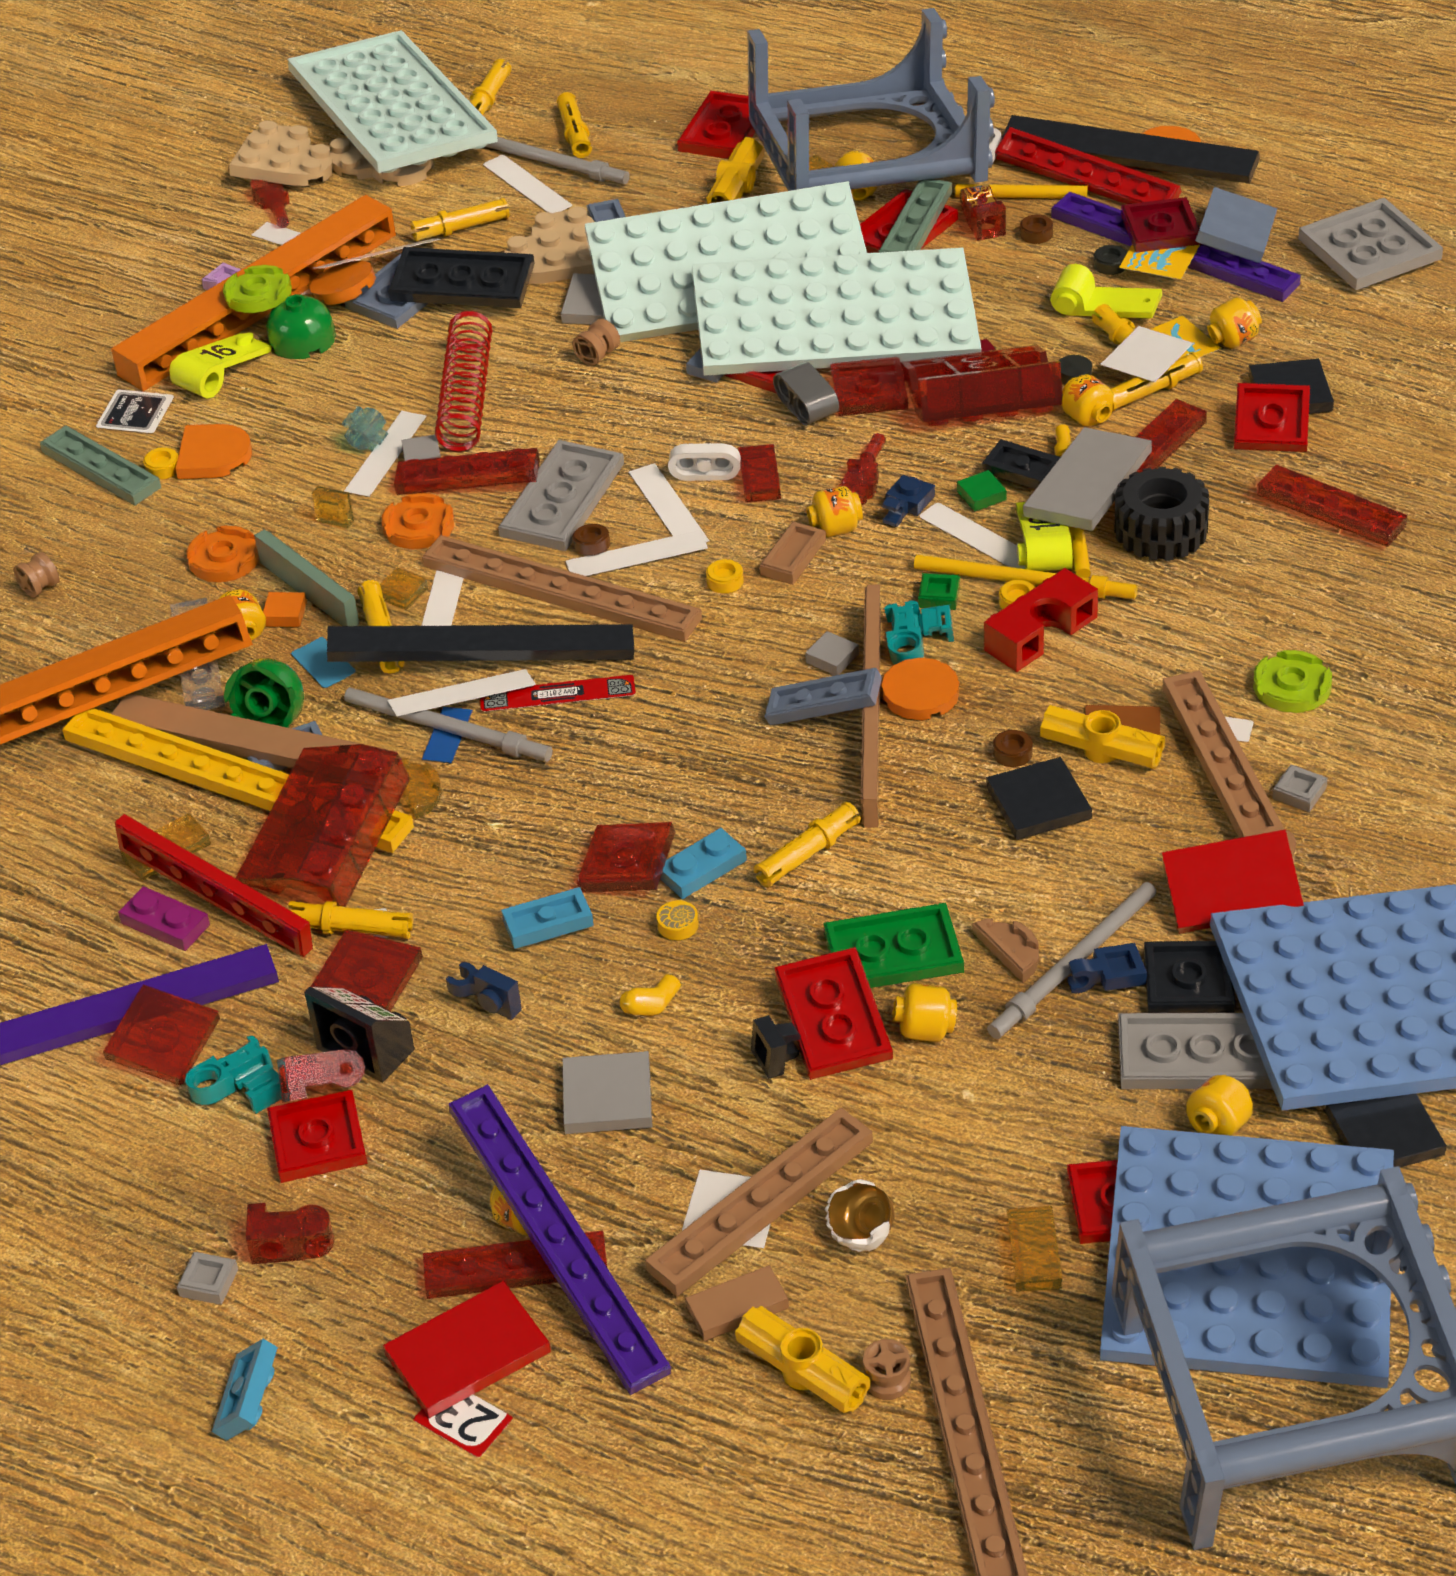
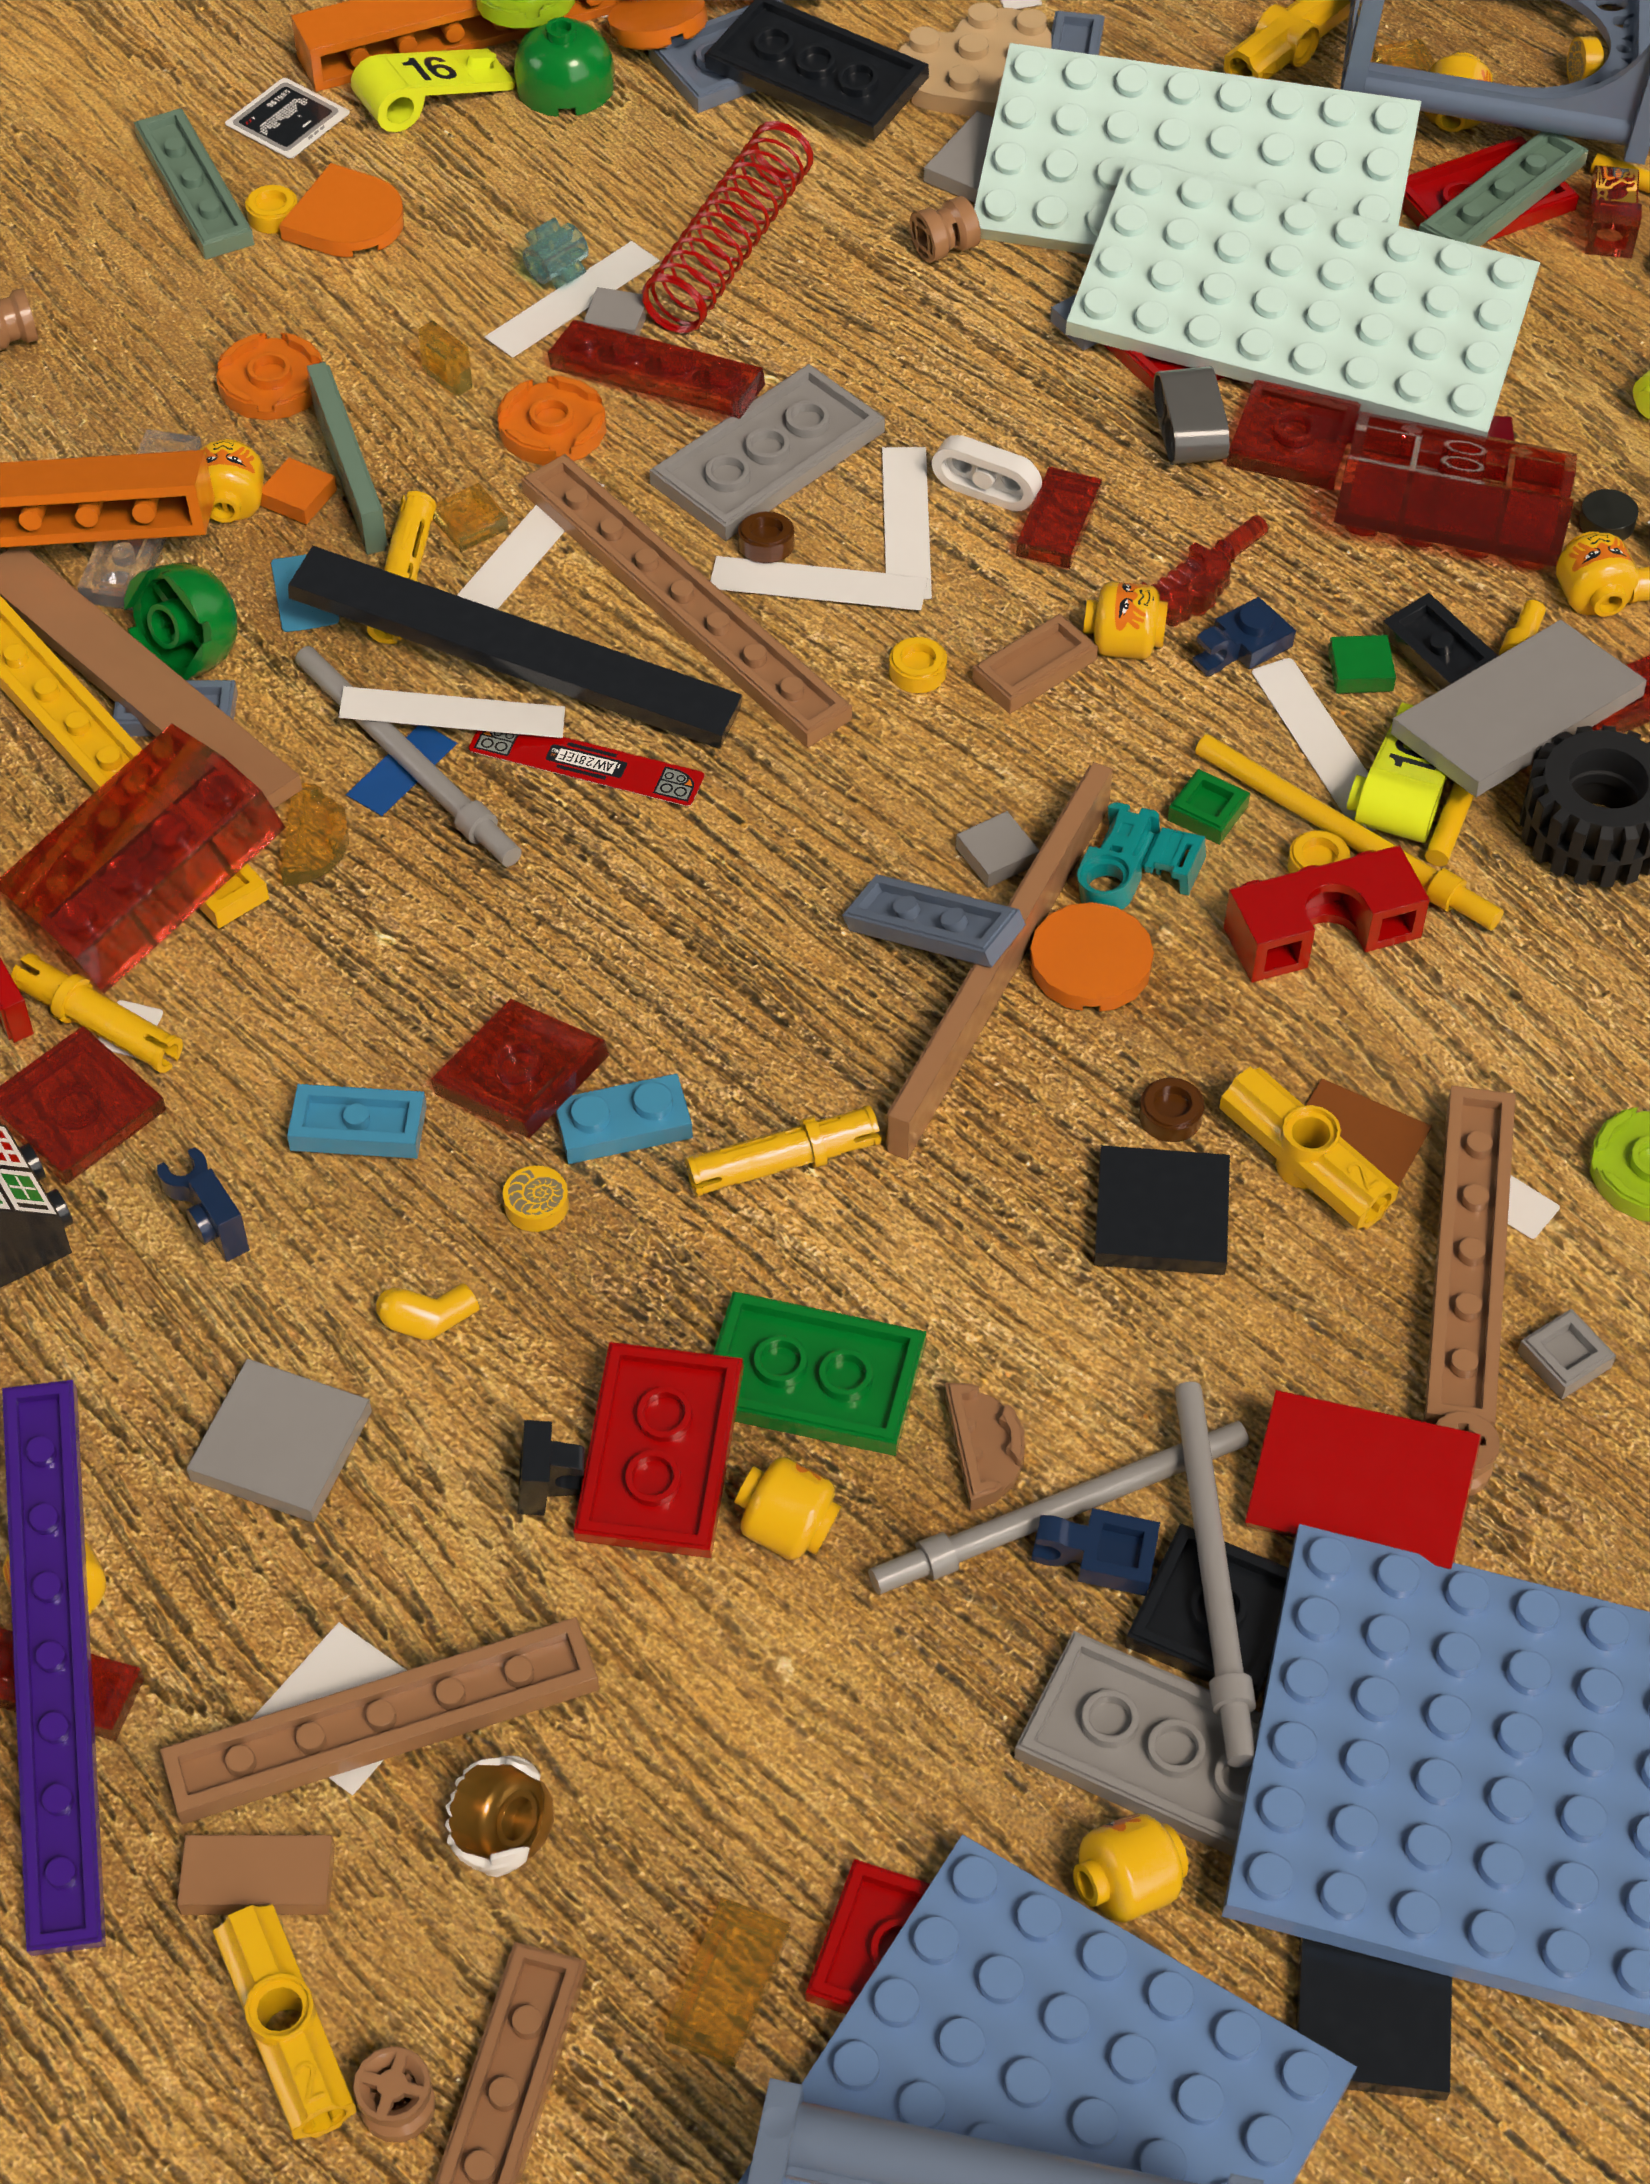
camera: 20 degrees right, 10 degrees up
(918, 136) = (1584, 58): none -> yellow tile
(1221, 1002) = (1230, 1688): none -> light grey bar

